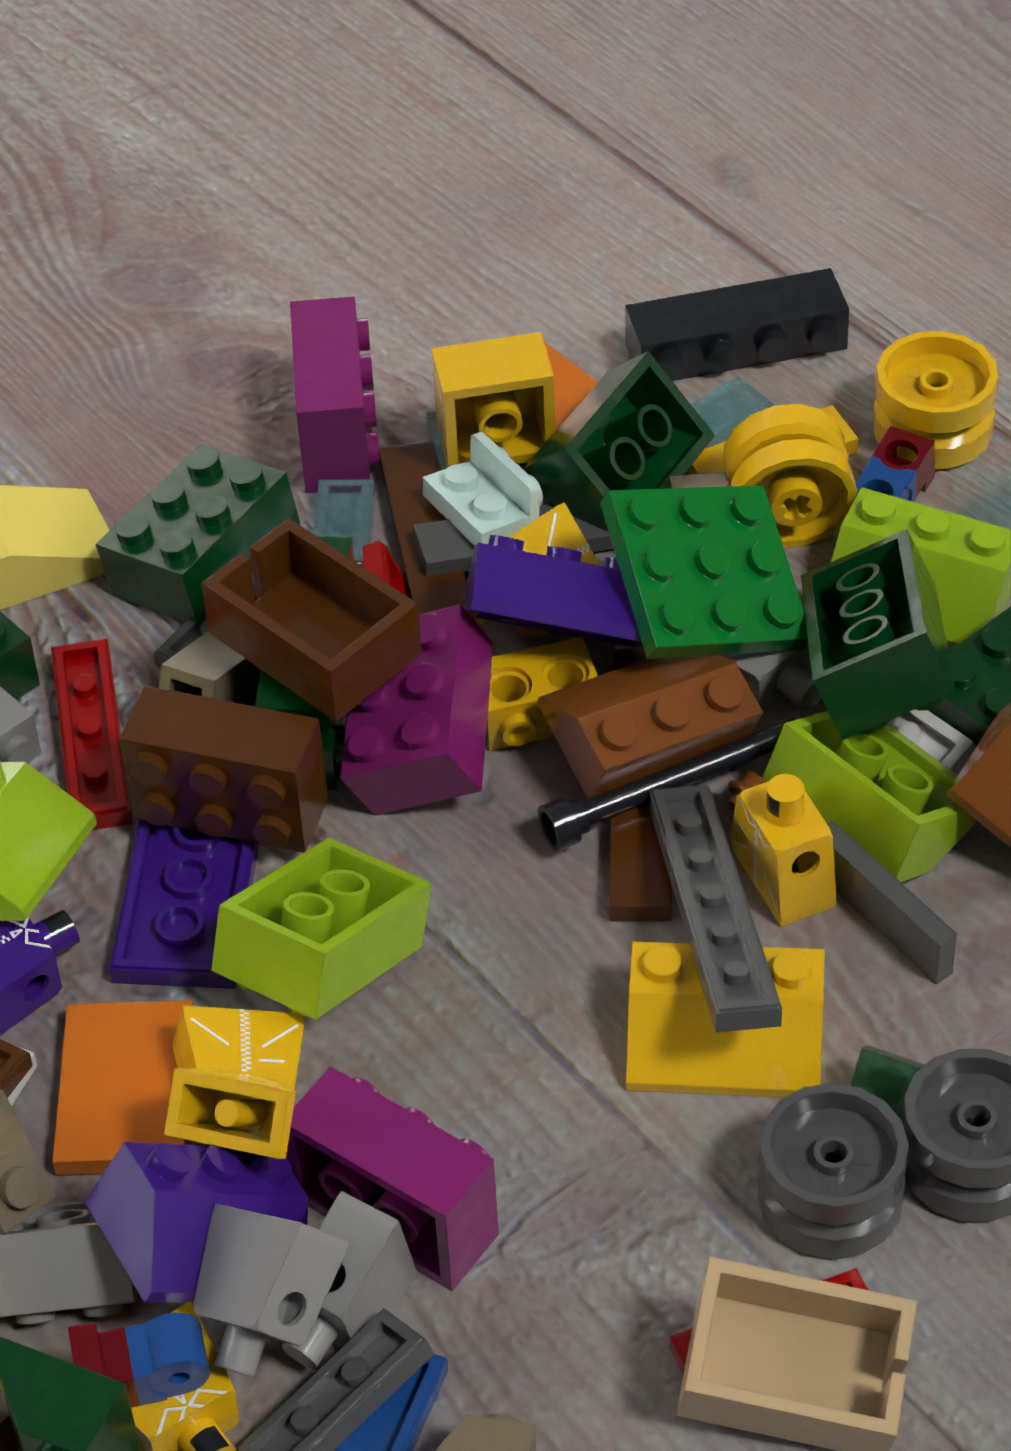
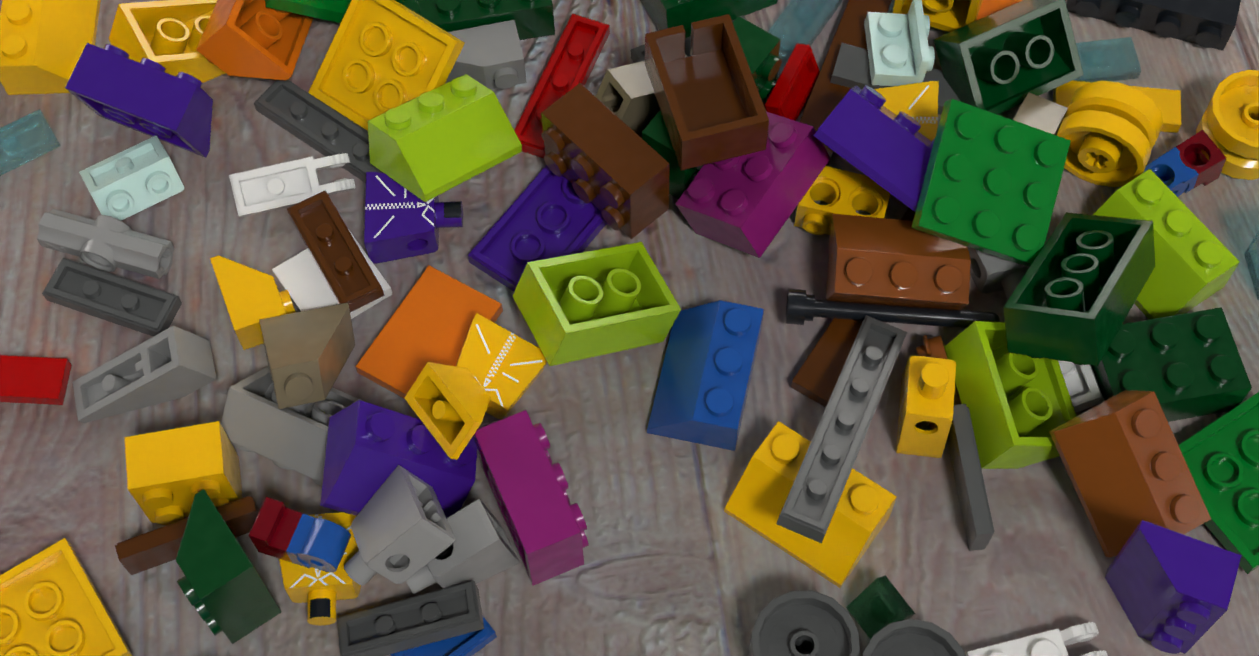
camera: 30 degrees right, 15 degrees up
(506, 948) = (707, 374): none -> blue slope

